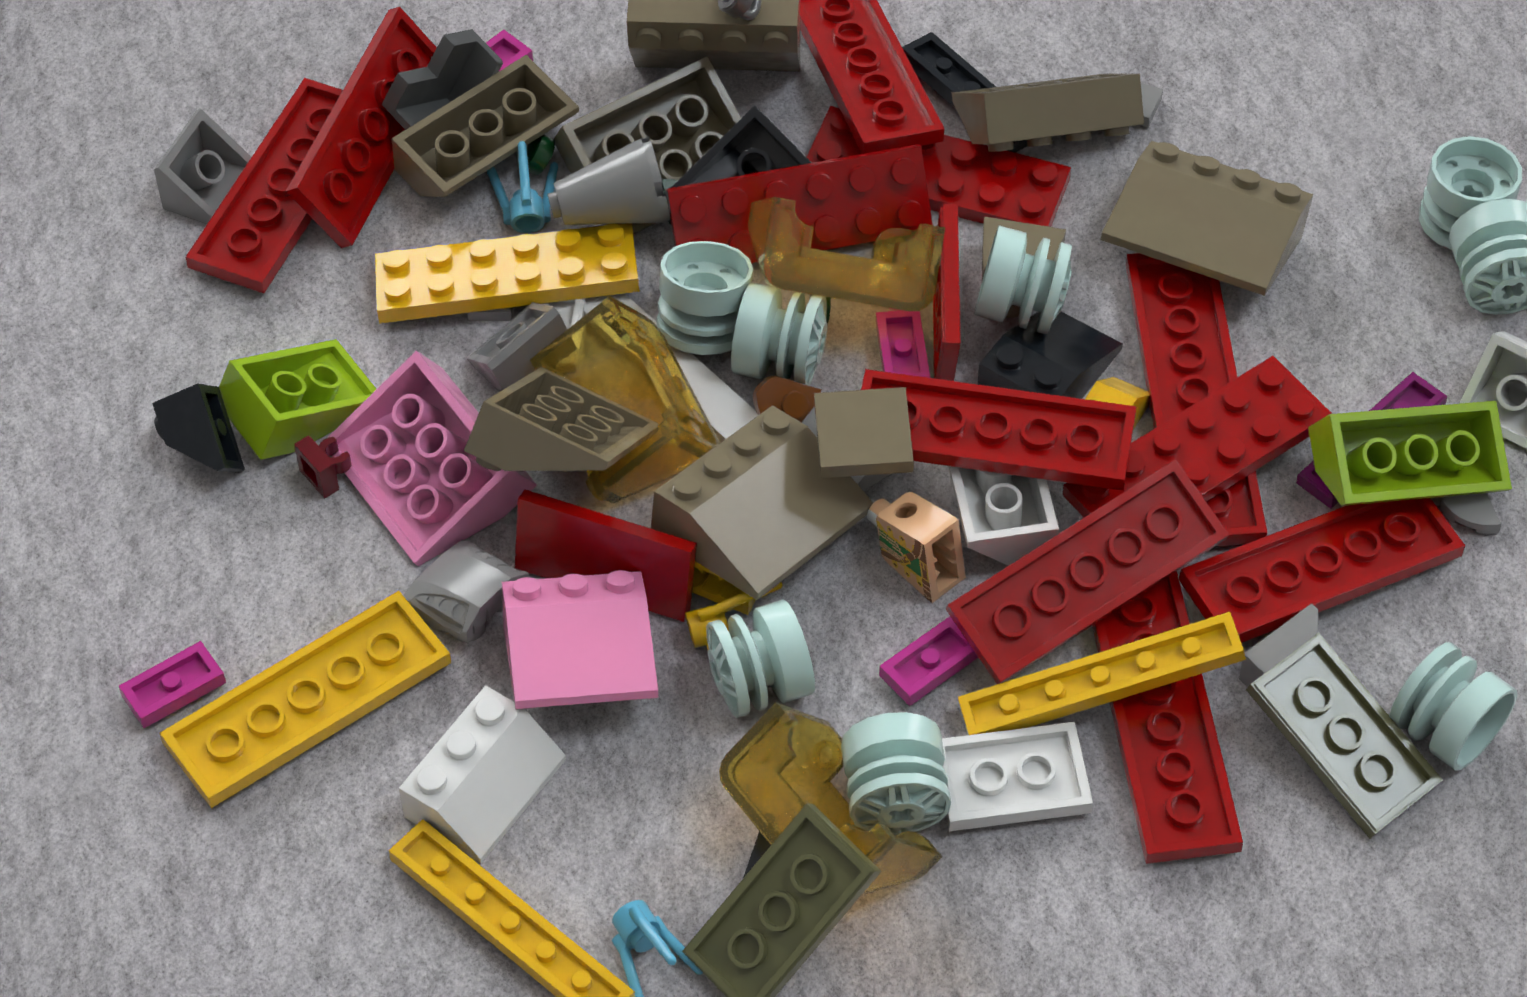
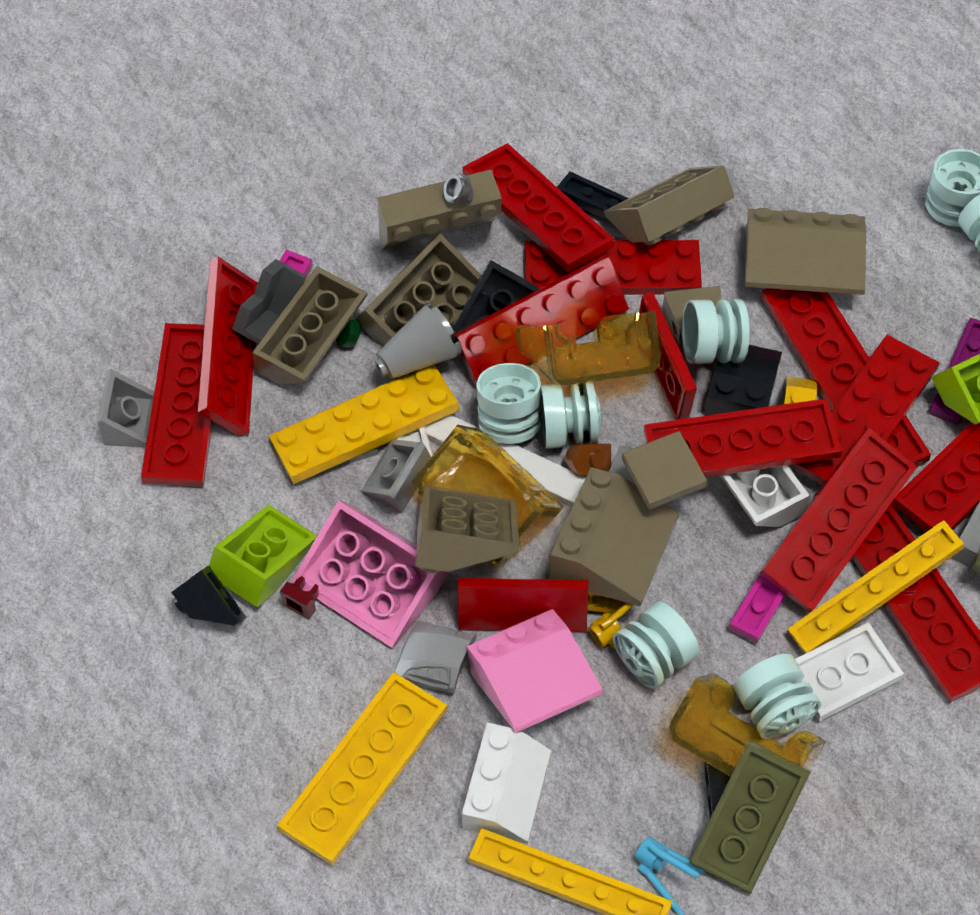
camera: 20 degrees left, 5 degrees up
(172, 684) = (268, 787): dark pink plate -> none
(526, 209) = (356, 373): medium azure plant -> none
(902, 343) = (647, 399): dark pink plate -> none
(920, 543) = (718, 530): light nougat torso -> none

